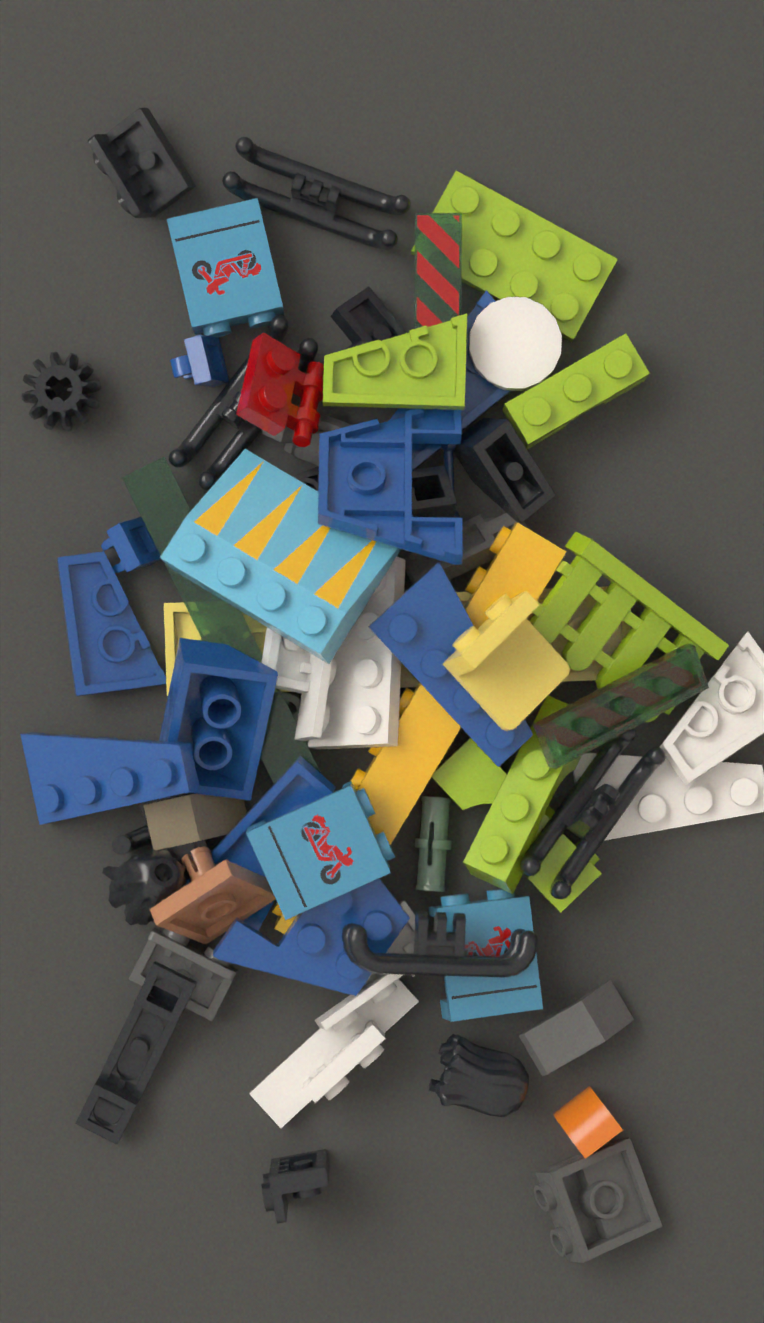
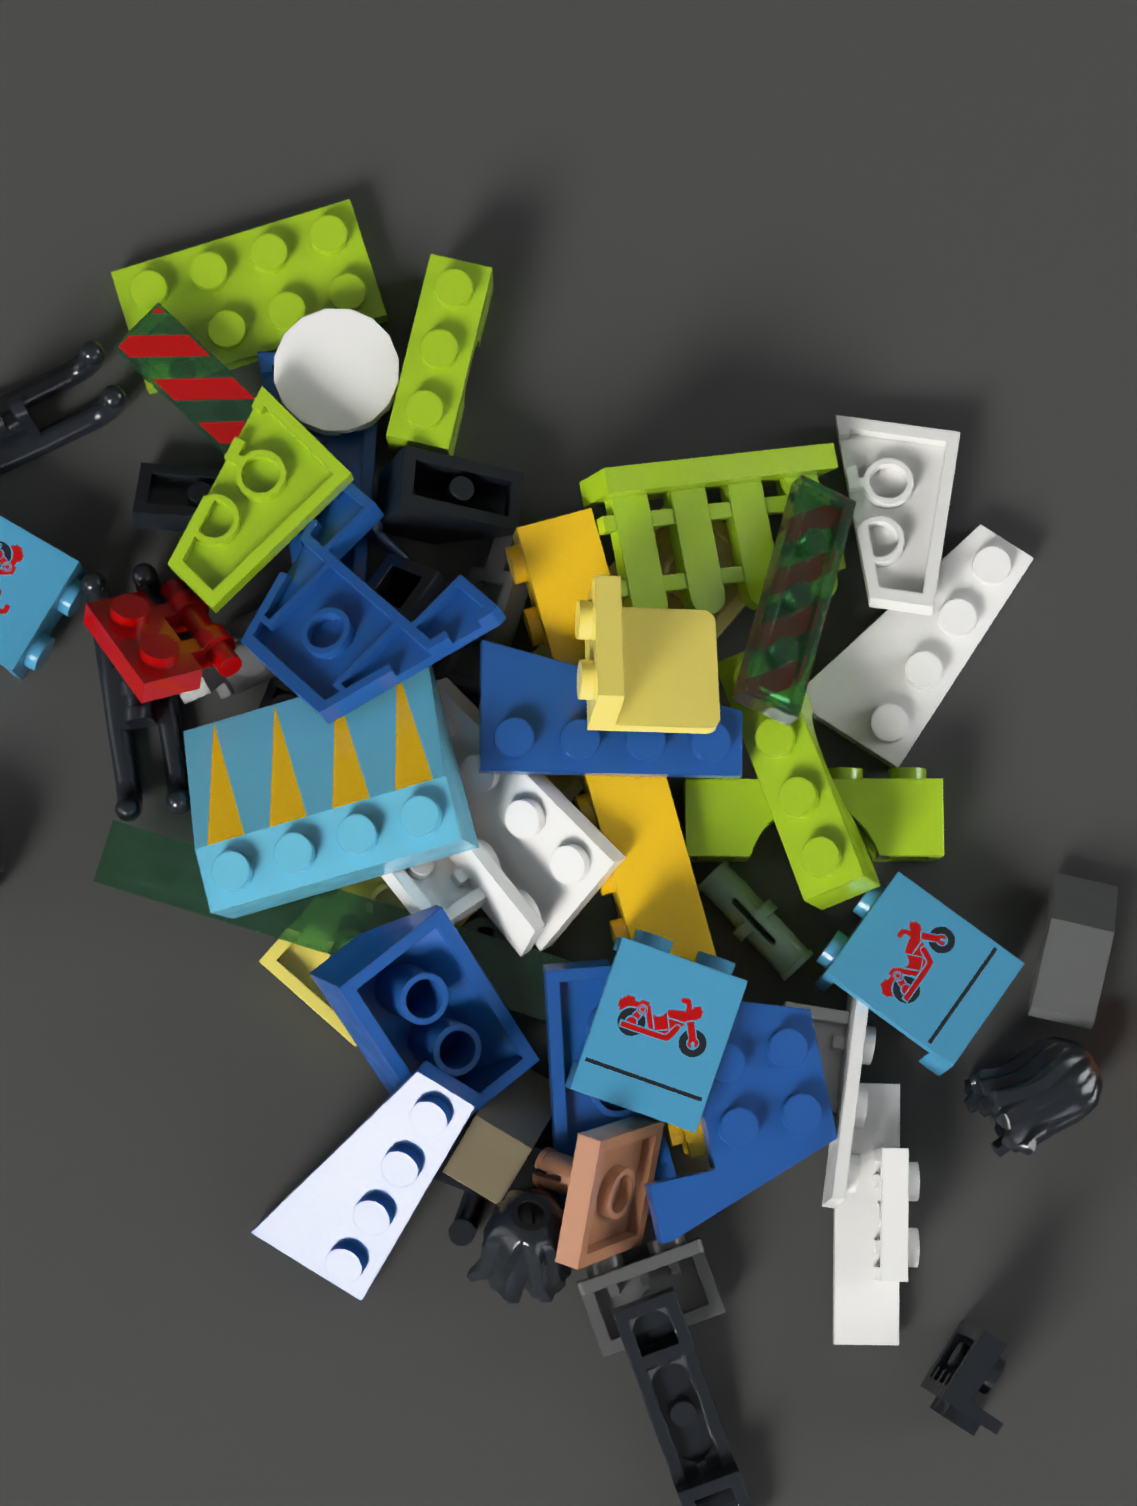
camera: 45 degrees left, 5 degrees down
(102, 631) = (228, 1051): blue wing -> none
(132, 545) = (172, 936): blue tile -> none
(203, 362) = (56, 696): blue tile -> none
(440, 951) = (872, 1007): black piece -> none
(590, 812) = (871, 731): black piece -> none

